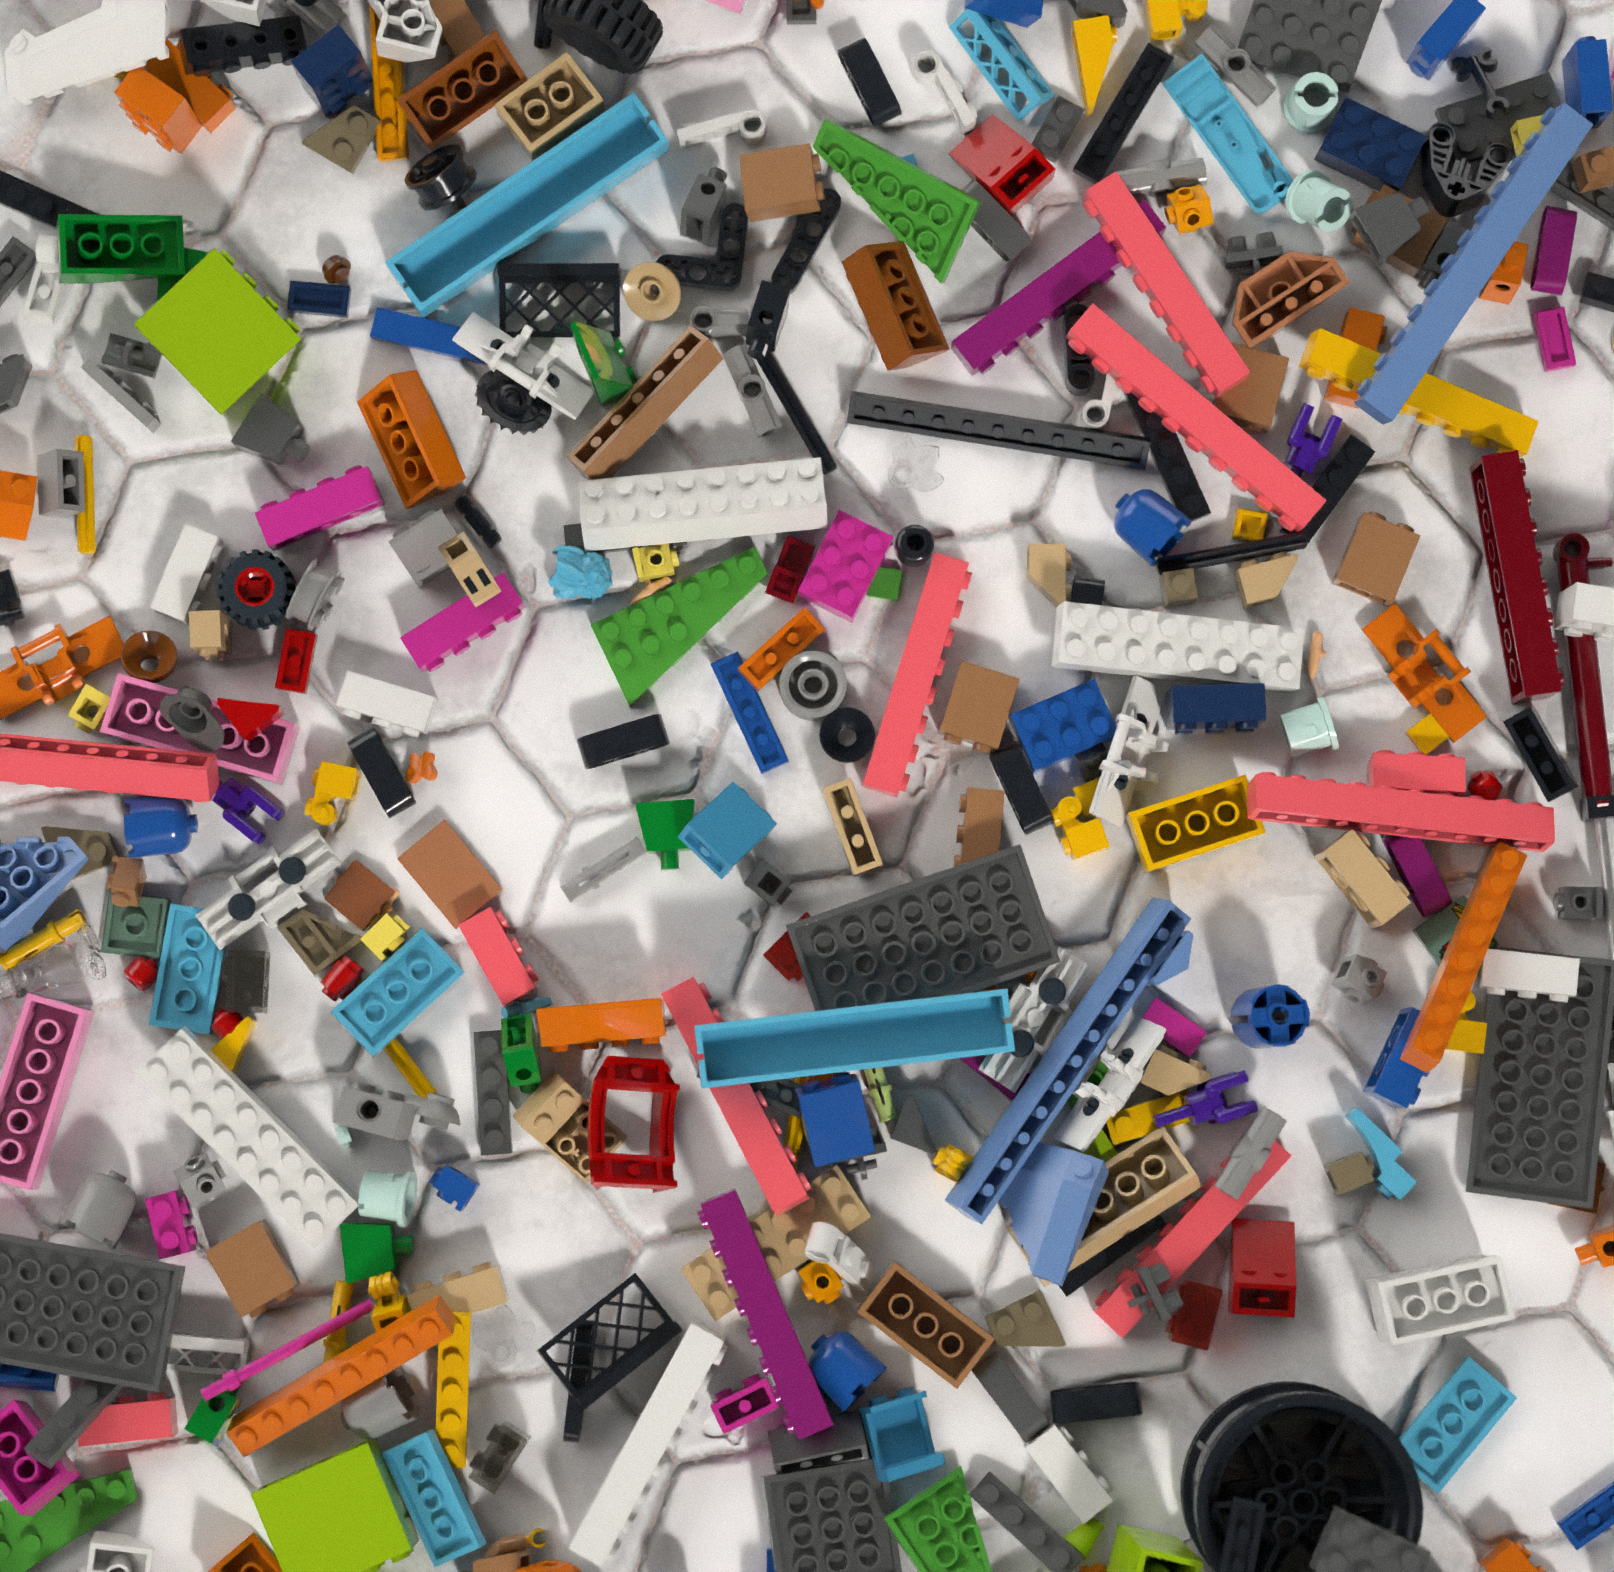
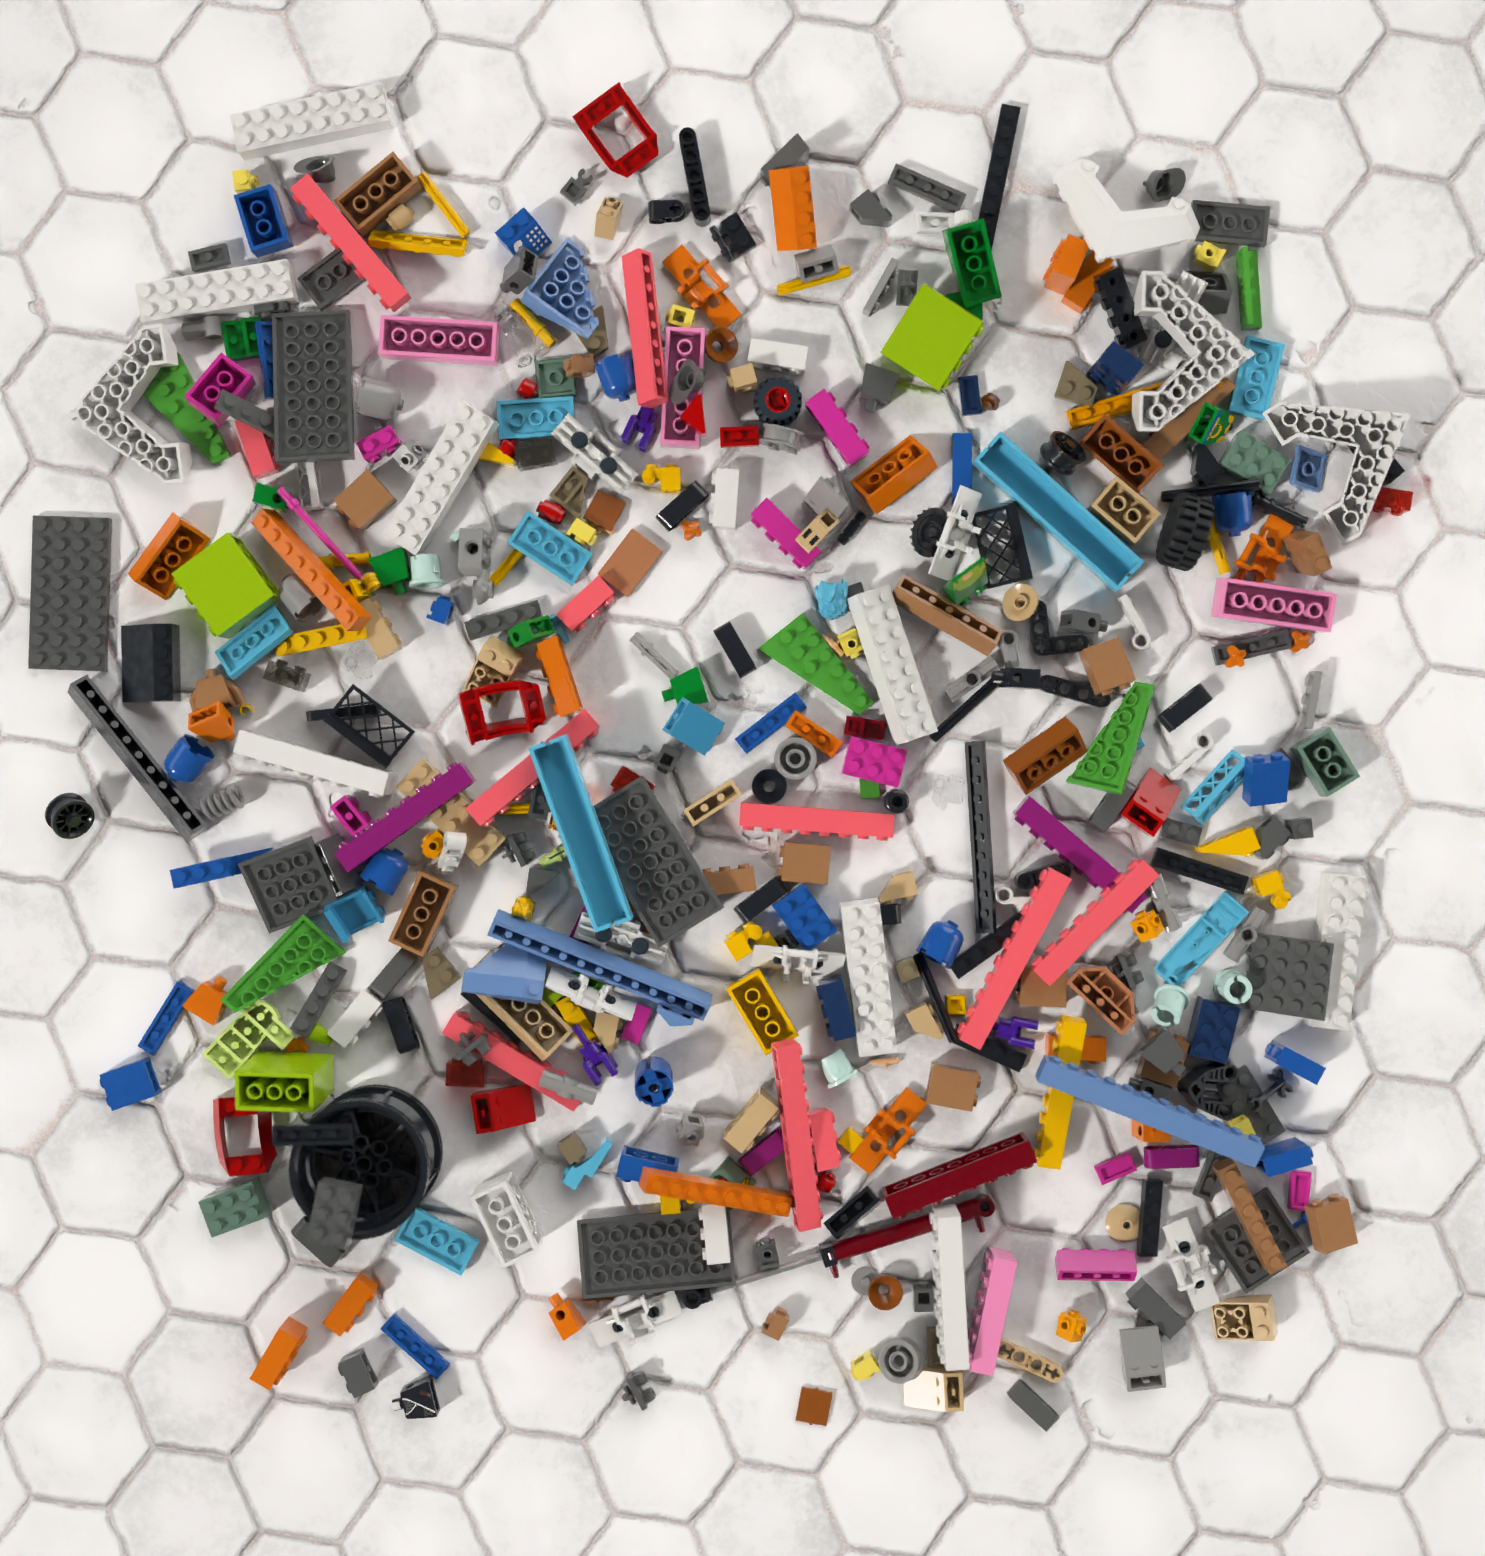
camera: 80 degrees right, 5 degrees up
(834, 1119) = (530, 832): blue brick -> none

